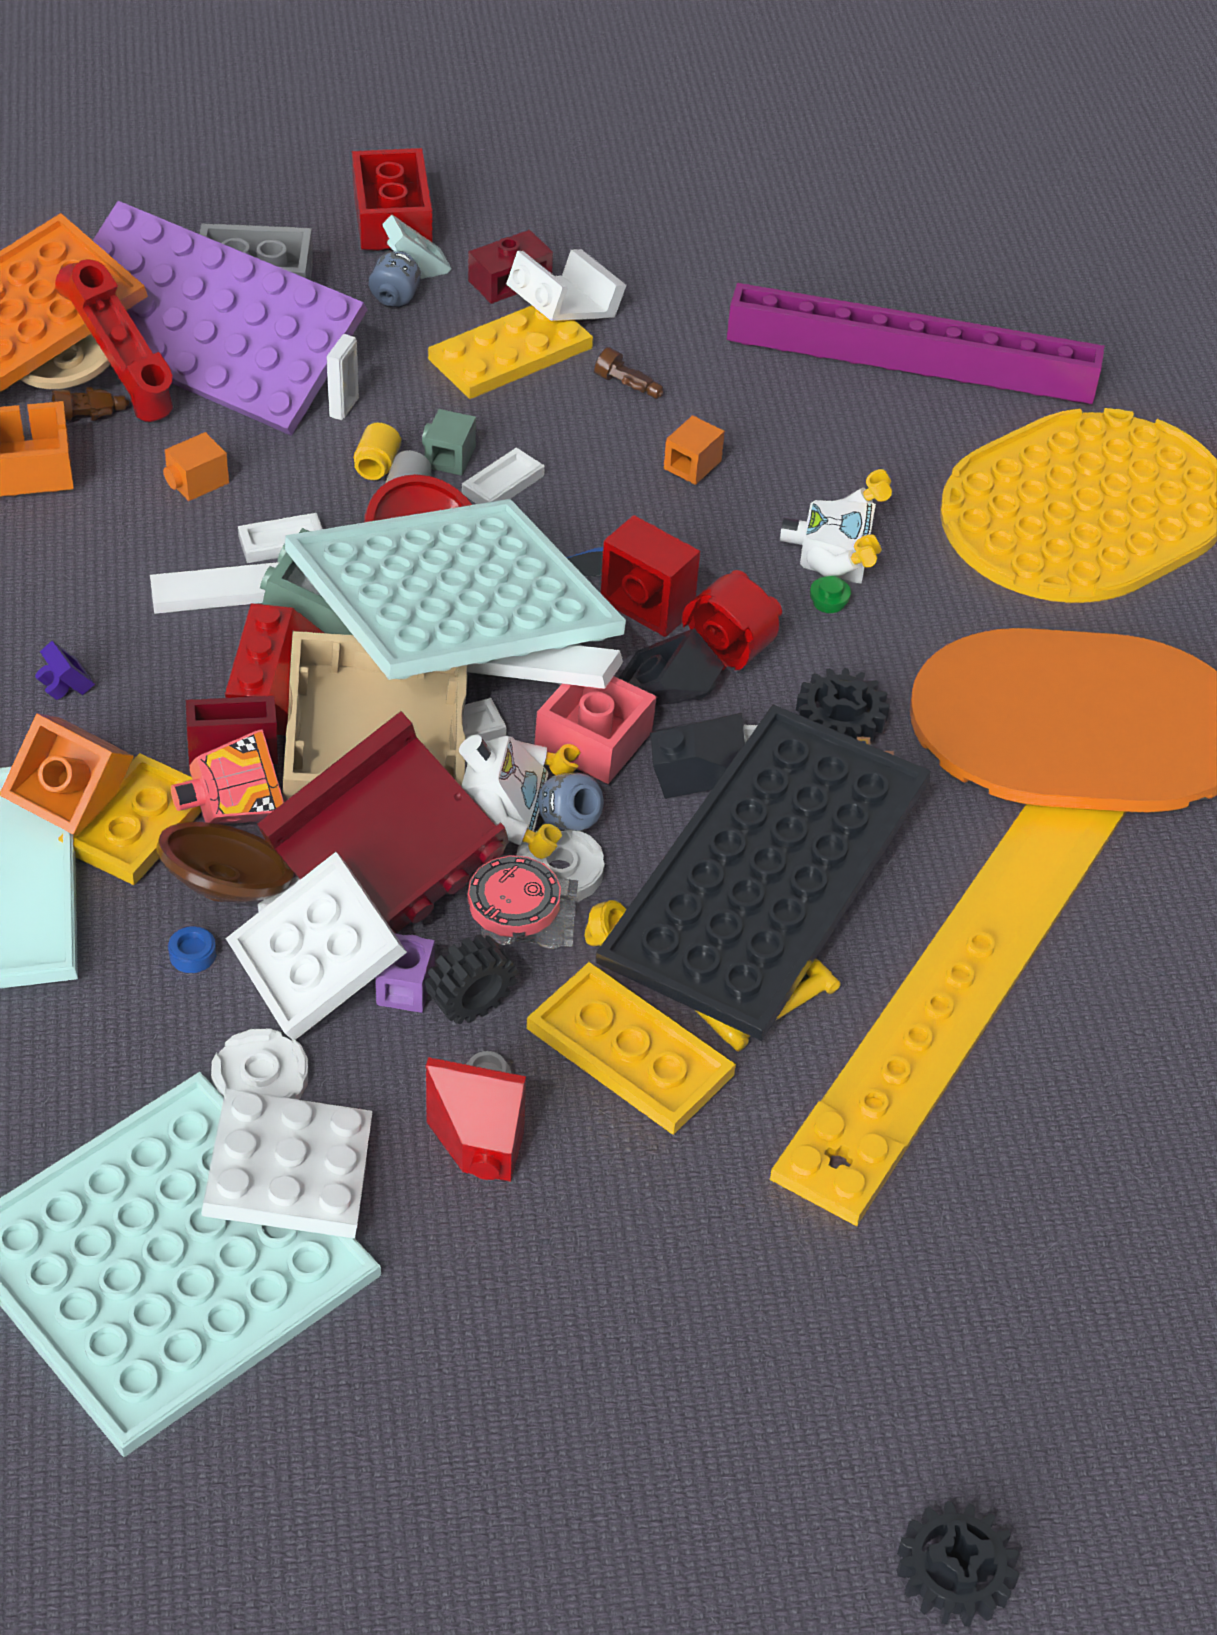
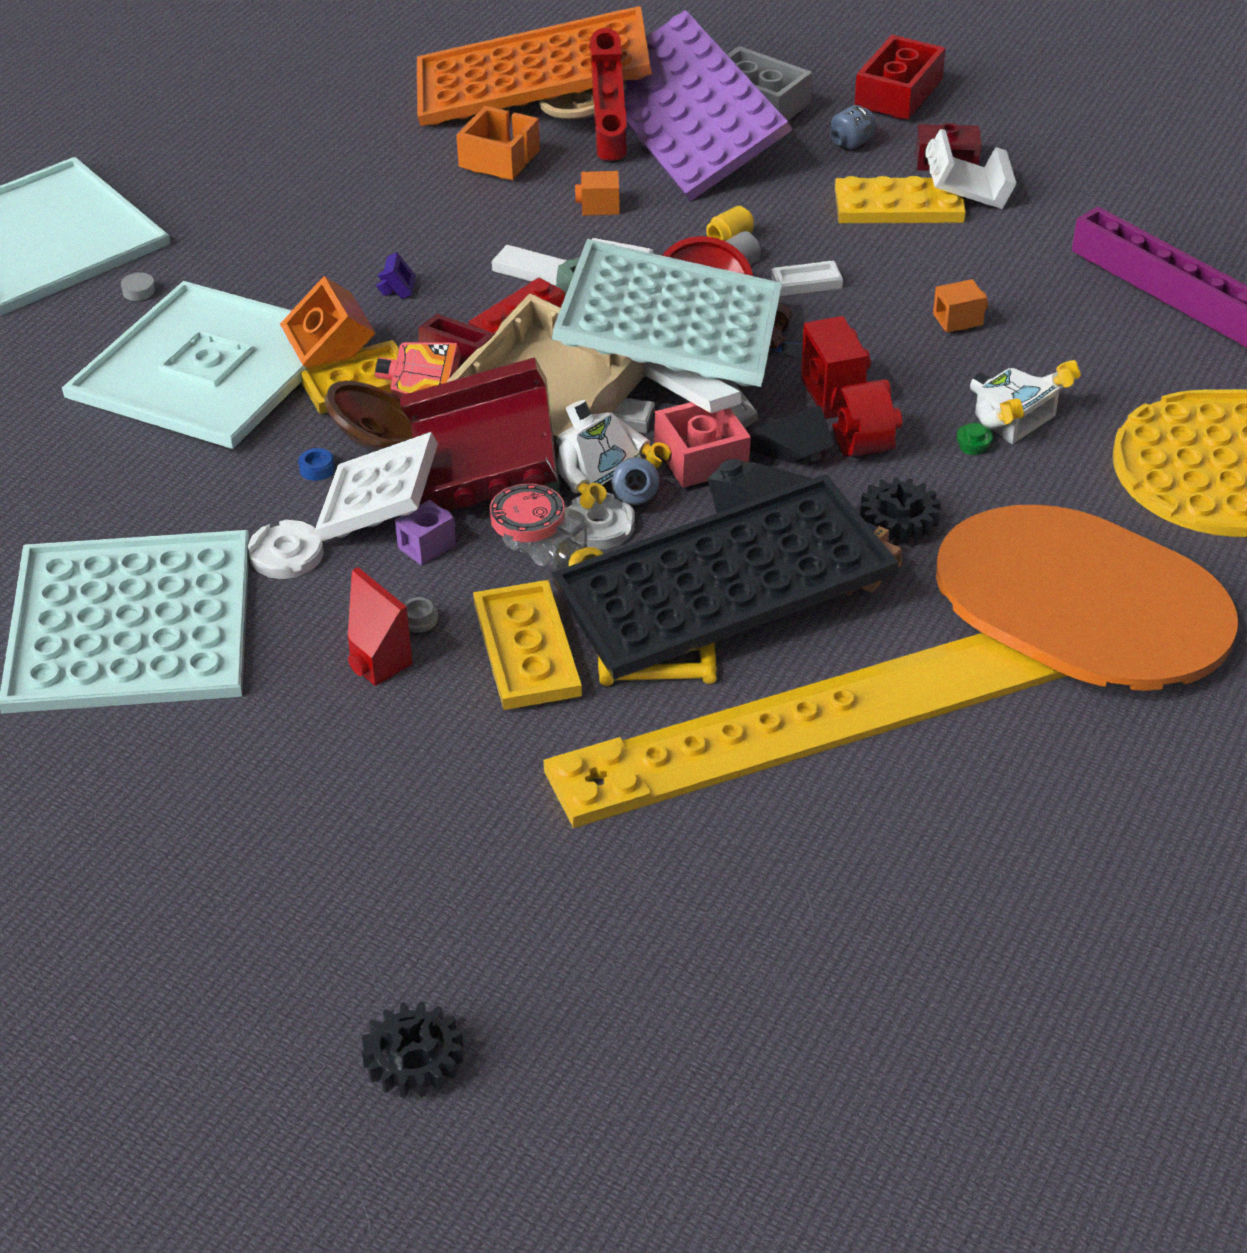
camera: 40 degrees right, 5 degrees down
(92, 403) = (573, 136): reddish brown piece -> none
(288, 1163) = (241, 601): white plate -> none
(342, 377) = (744, 170): white tile -> none
(424, 252) = (890, 119): light aqua slope -> none
(450, 441) = (787, 239): sand green brick -> none
(471, 979) = (455, 535): black tyre -> none
(610, 365) = (959, 236): reddish brown piece -> none

